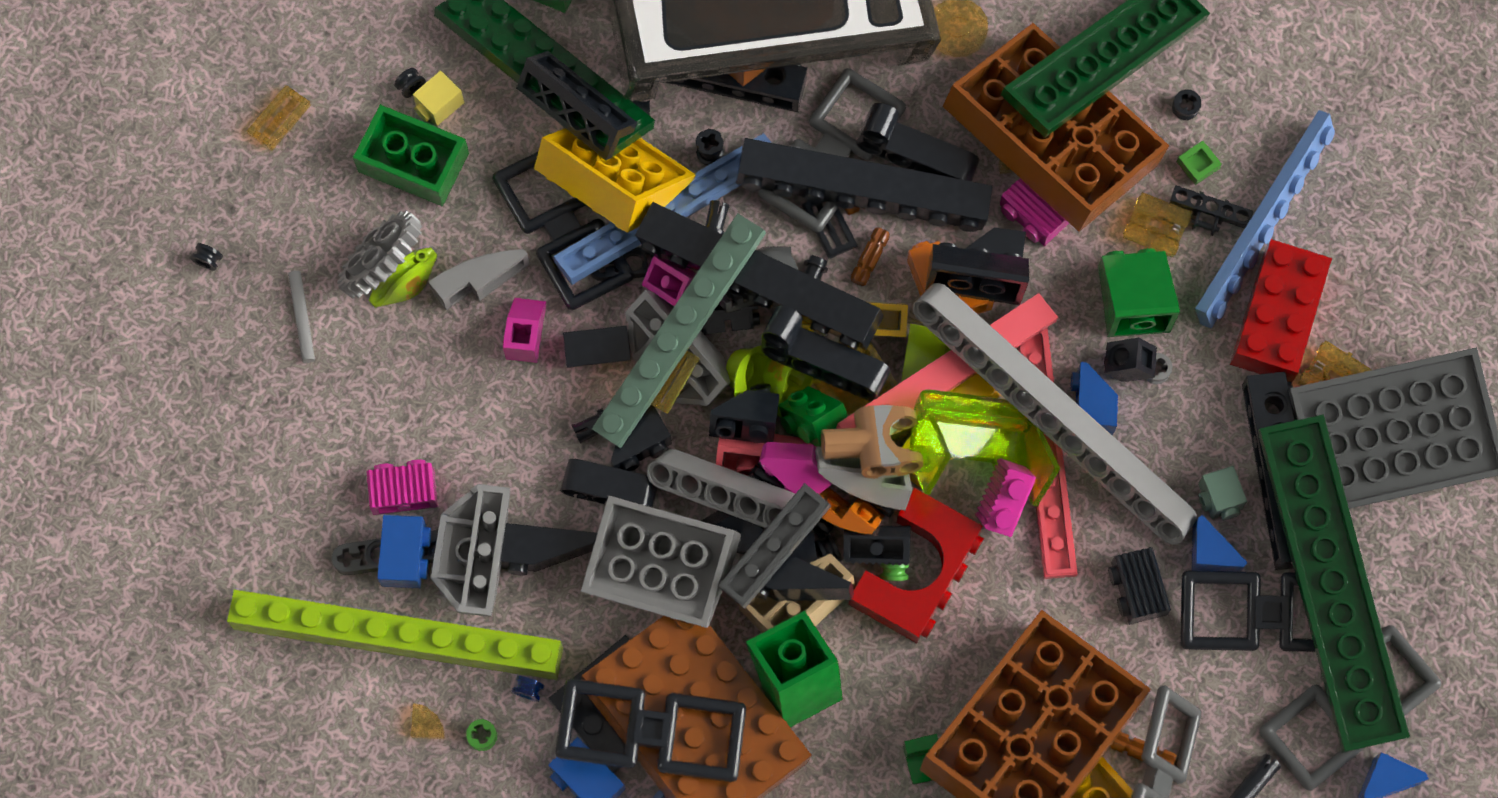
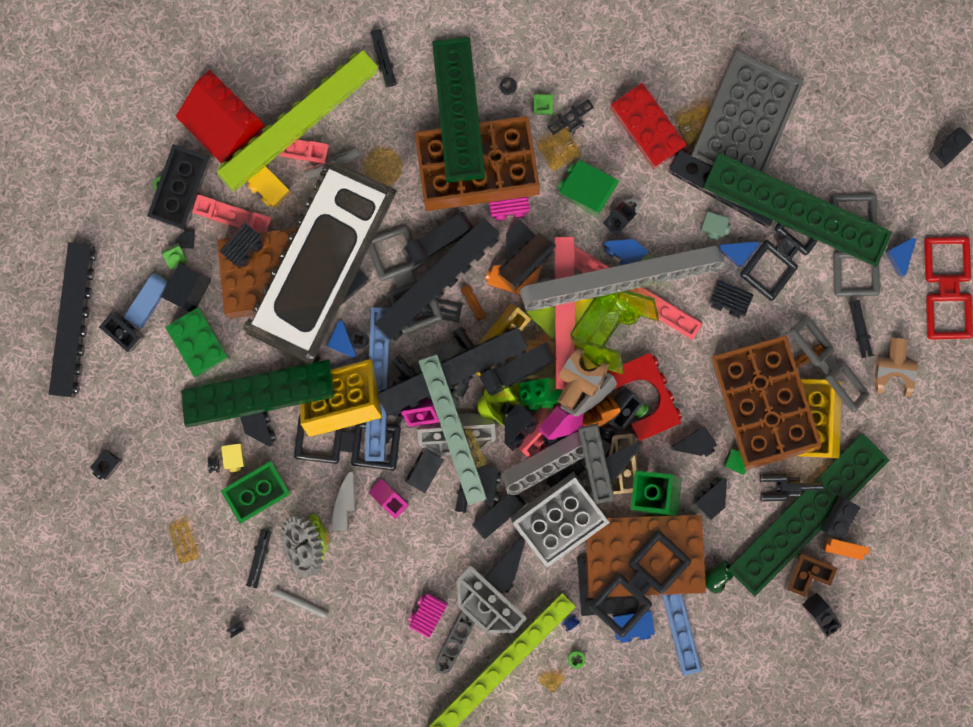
camera: 55 degrees left, 15 degrees up
(323, 222) = (259, 557): none -> black pin
(403, 551) = (463, 637): blue brick -> none
(500, 103) = (258, 428): none -> black slope
(575, 96) = (292, 392): black fence -> none
(691, 121) = (341, 341): none -> blue slope
(847, 762) = (714, 499): none -> black slope
(905, 682) = (697, 443): none -> black slope
(1005, 497) = (644, 331): dark pink brick -> none
(1262, 224) = (599, 102): medium blue plate -> none

